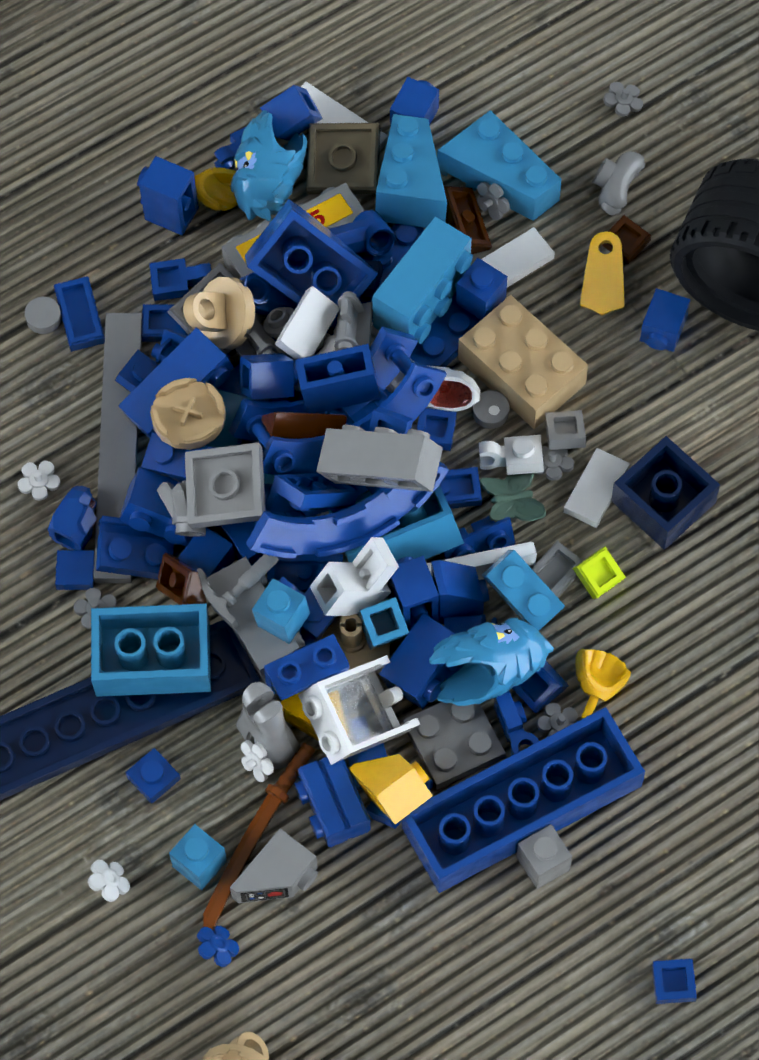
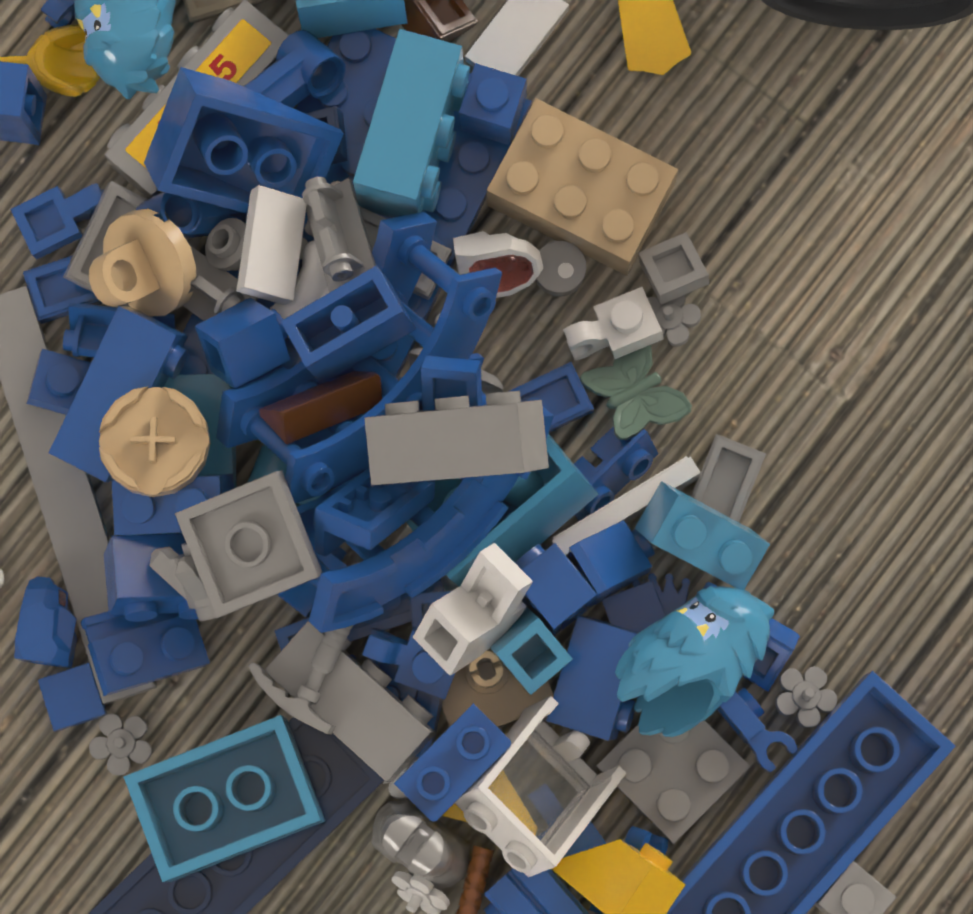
camera: 15 degrees left, 15 degrees up
(179, 581) = (229, 685): reddish brown slope -> none
(208, 553) = (248, 633): blue brick -> none
(281, 611) = (390, 696): dark azure brick -> none
(439, 425) = (502, 336): blue plate -> none
(595, 488) = (742, 336): white tile -> none
(599, 573) = (789, 463): neon yellow tile -> none
(599, 676) = (840, 613): yellow piece -> none
(664, 320) = (755, 60): blue brick -> none
(665, 492) = (844, 320): dark blue brick -> none

